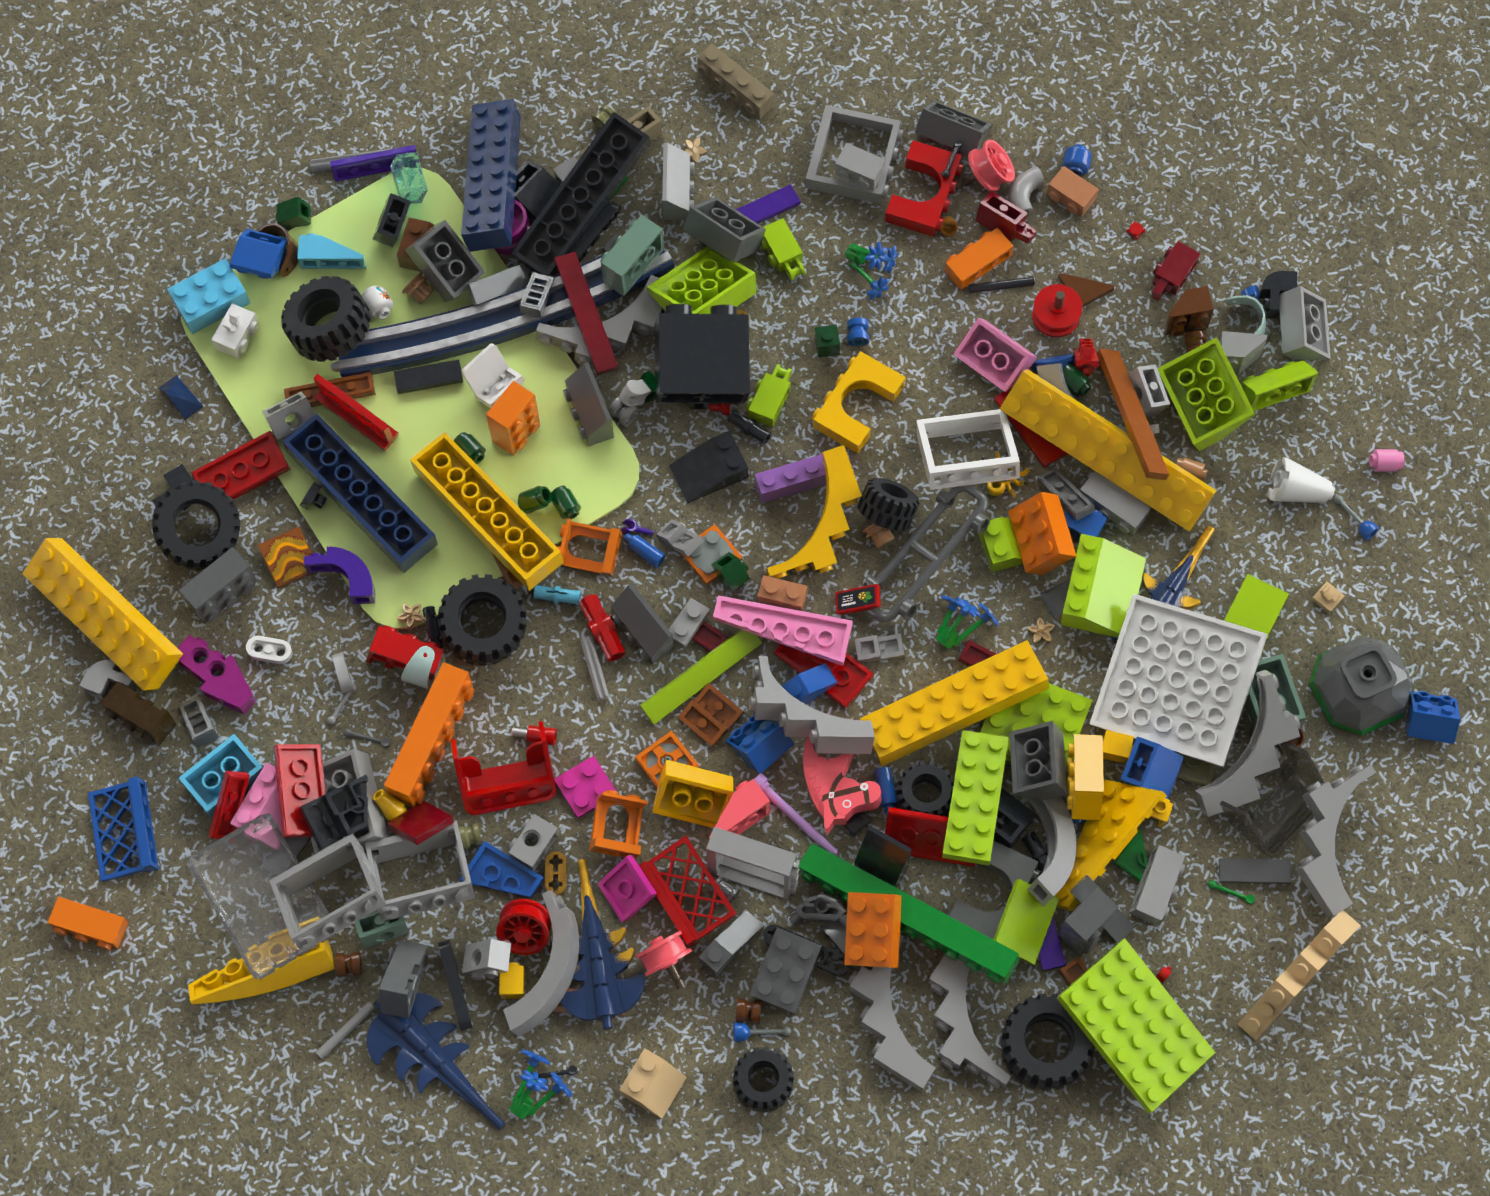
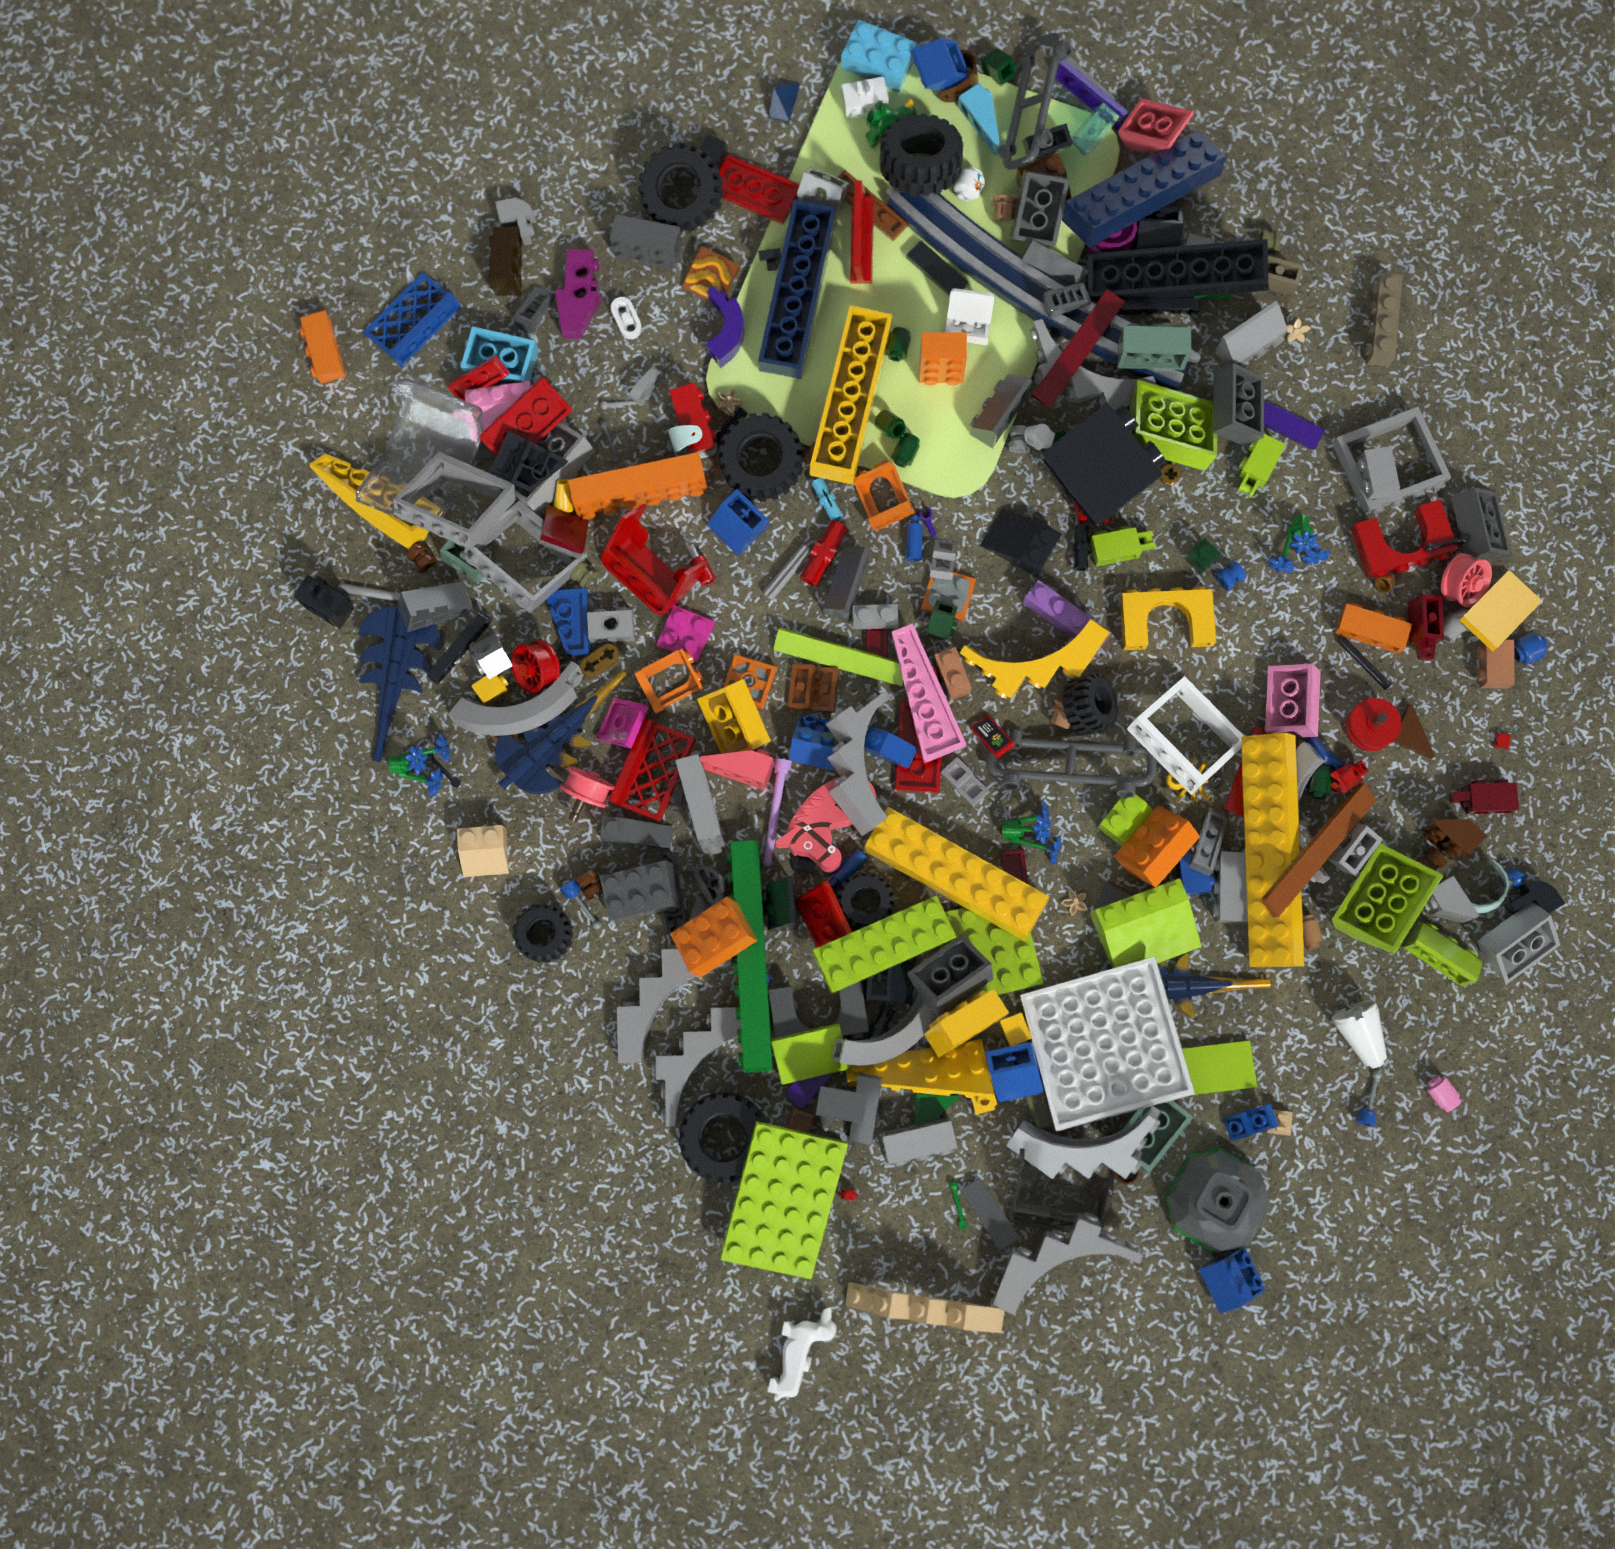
camera: 60 degrees right, 10 degrees up
(102, 614) = (562, 175): yellow brick -> none
(269, 328) = (881, 117): none -> green animal
(325, 1072) = (324, 601): none -> black hinge
(389, 219) = (1042, 137): none -> dark grey bar
(445, 133) = (1153, 126): none -> coral slope
(523, 677) = (738, 522): none -> blue slope
(1033, 159) = (1500, 610): none -> yellow tile
(1269, 1104) = (796, 1352): none -> white animal
(1314, 617) = (1251, 1122): none -> blue slope

